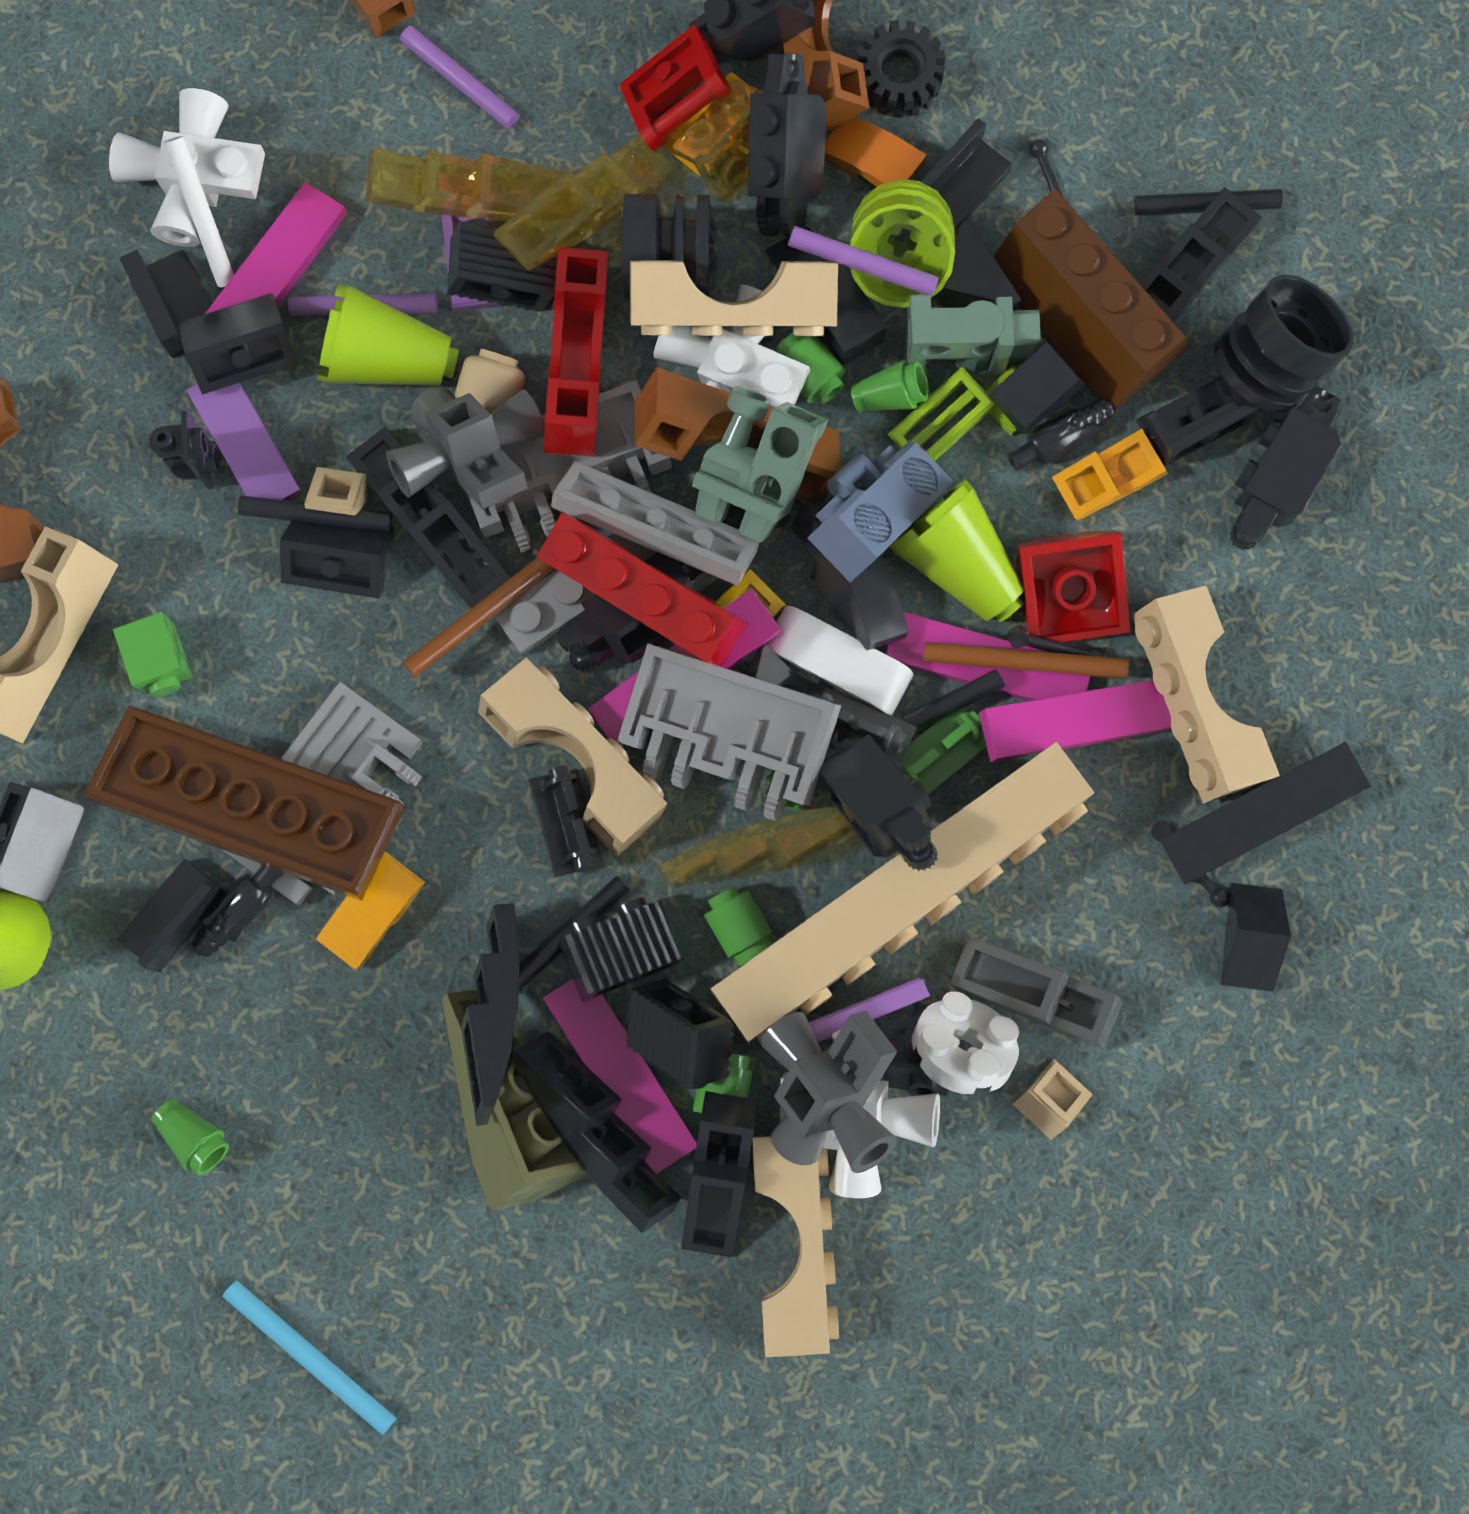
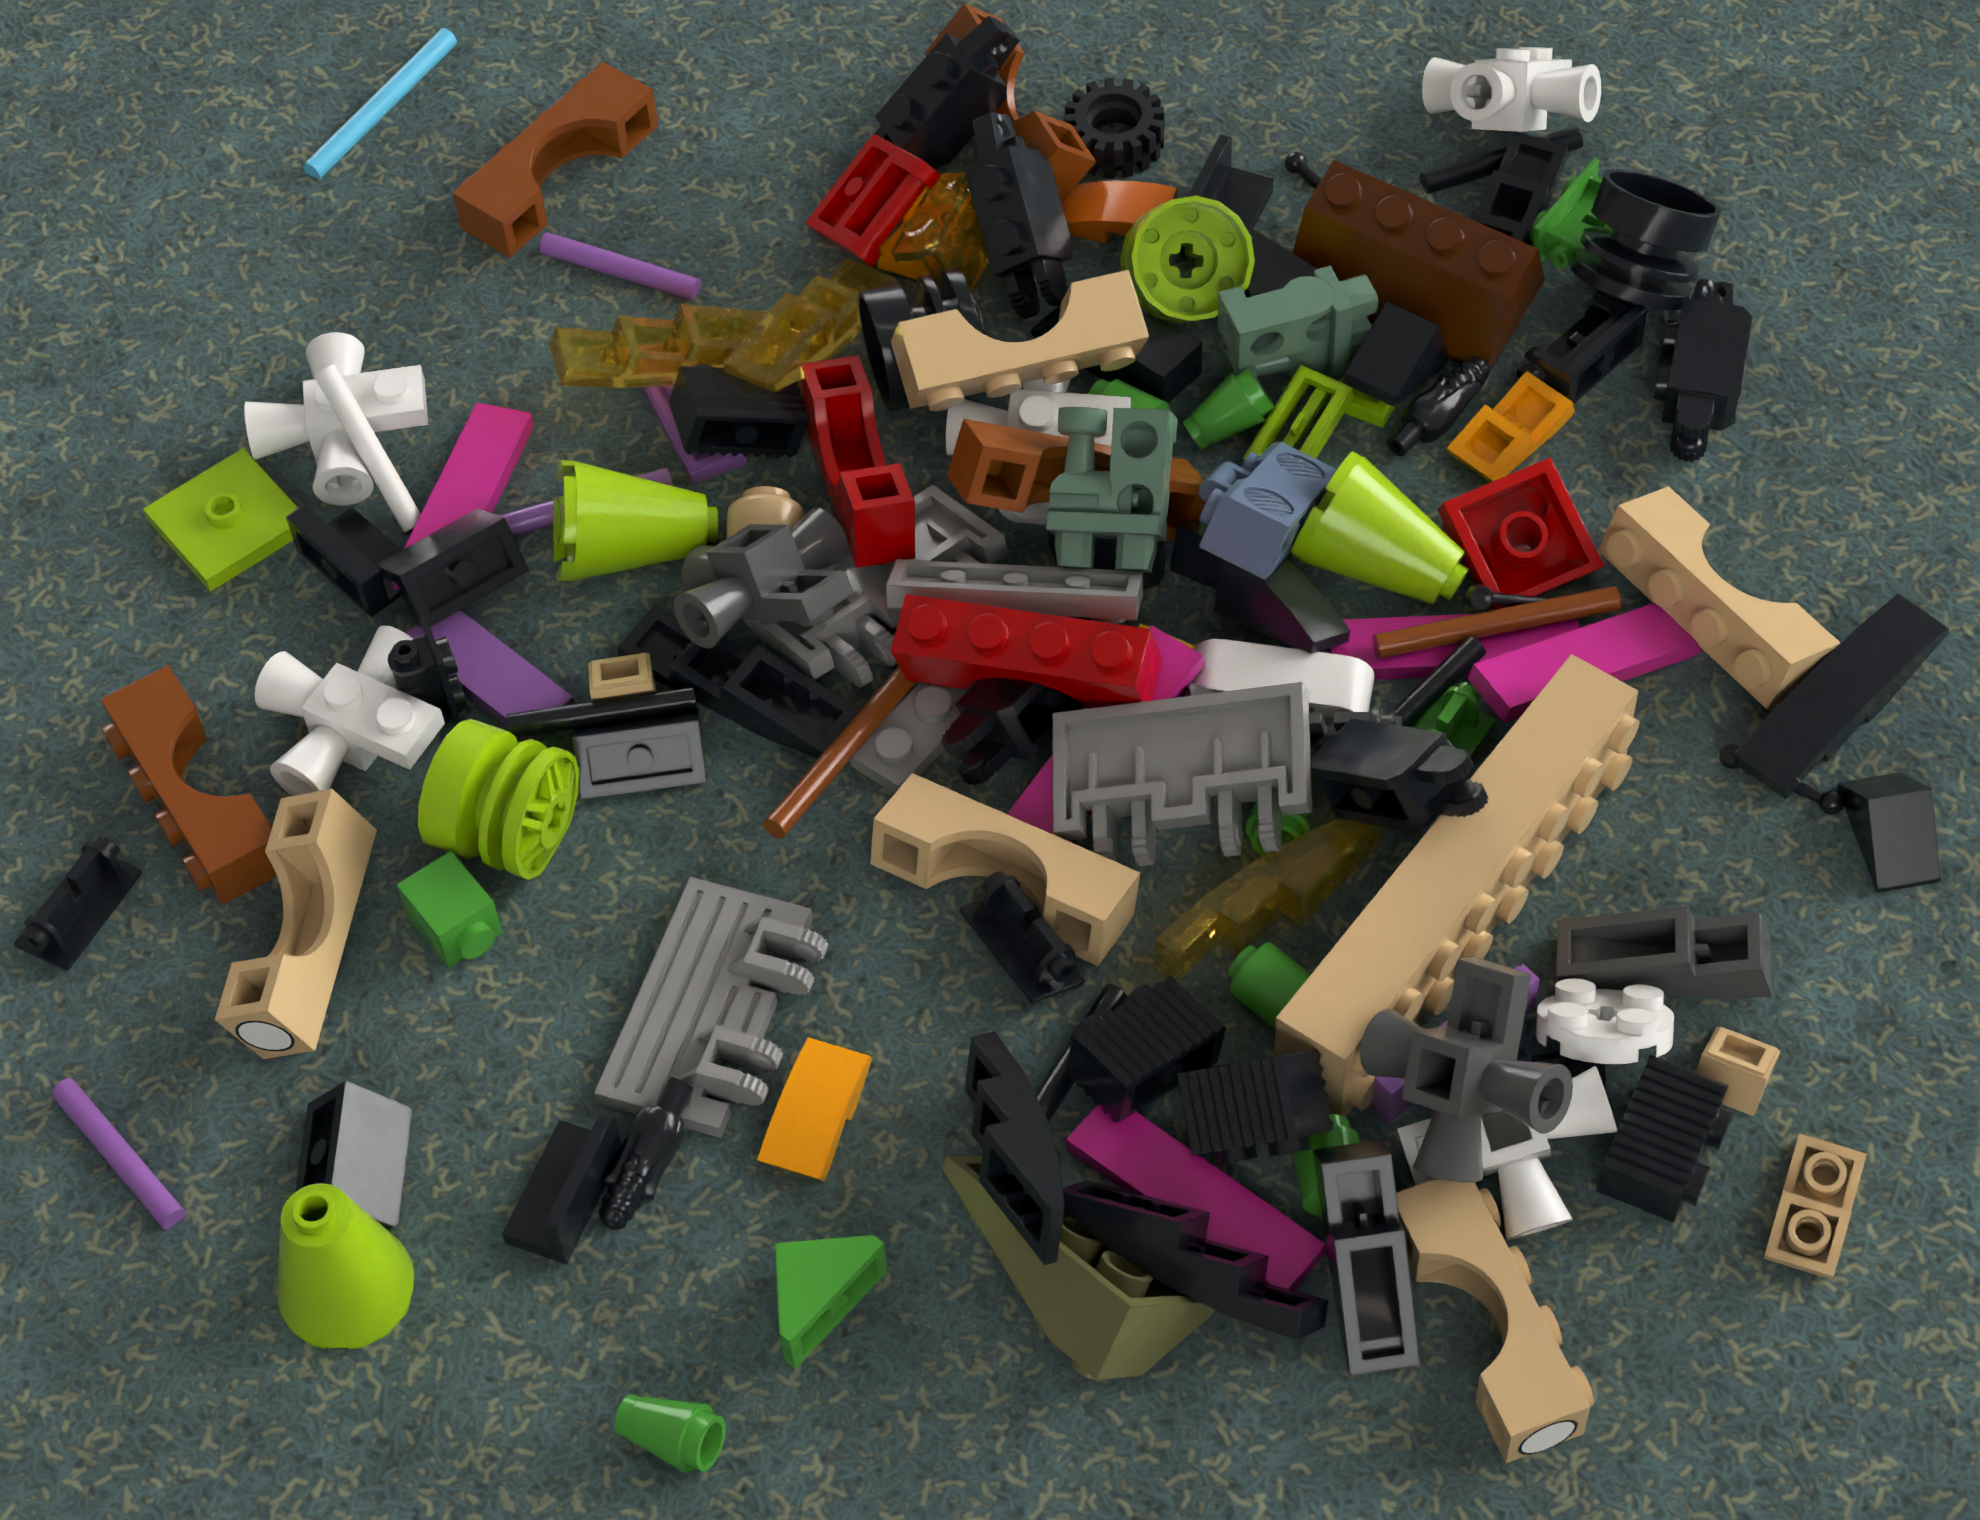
camera: 15 degrees left, 25 degrees down
(82, 229) = (224, 519): none -> lime plate
(119, 456) = (347, 716): none -> white brick
(208, 577) = (498, 798): none -> lime wheel
(245, 802) = (619, 1025): reddish brown tile -> none
(321, 1063) = (821, 1285): none -> bright green slope
(862, 261) = (1155, 271): medium lavender bar -> none
(975, 1147) = (1664, 1138): none -> black brick
(1062, 1233) = (1815, 1206): none -> tan slope
(1227, 297) = (1560, 229): none -> bright green hinge
(1238, 145) = (1512, 89): none -> white brick

